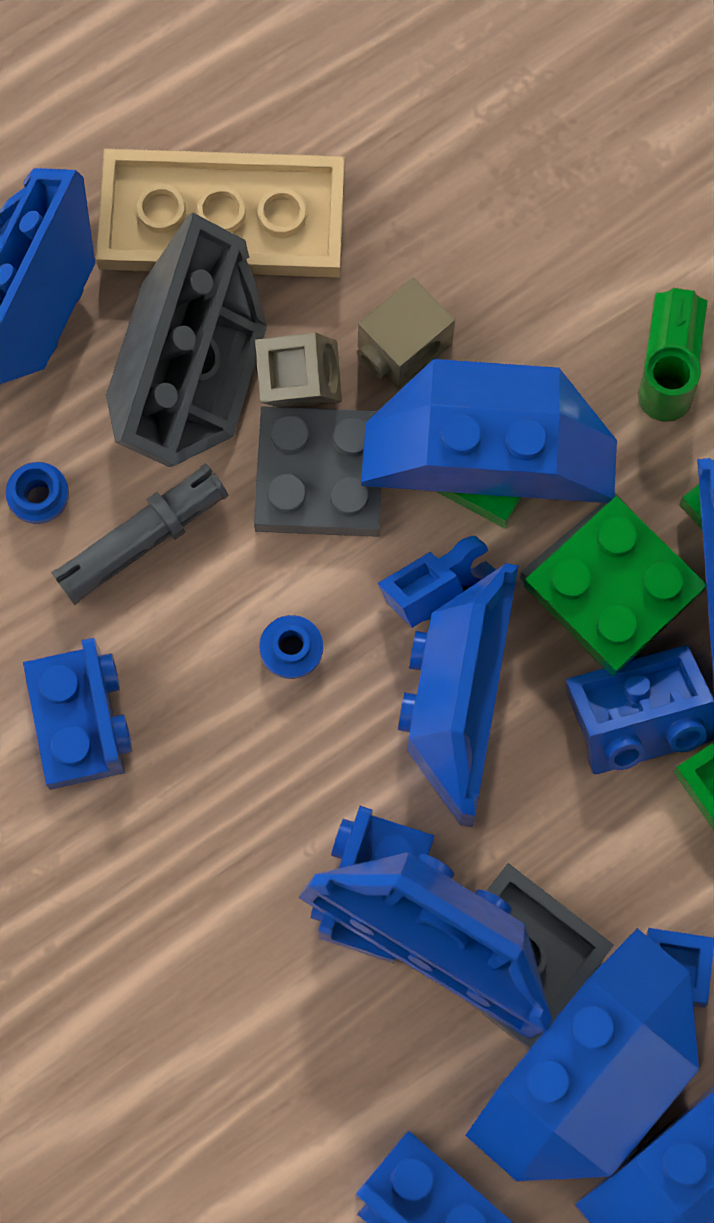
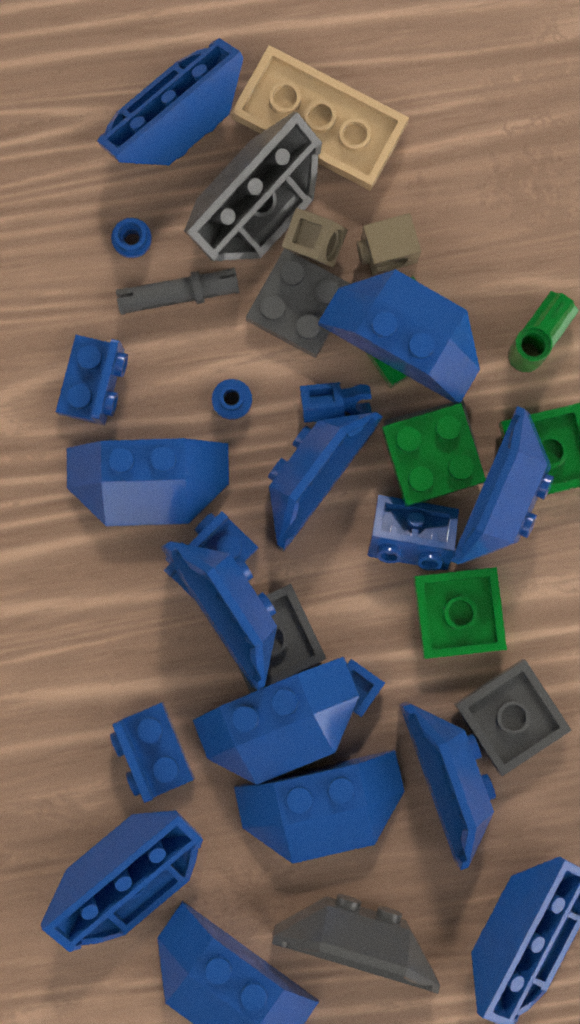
camera: 25 degrees right, 10 degrees up
(224, 817) = (147, 479): none -> blue wedge

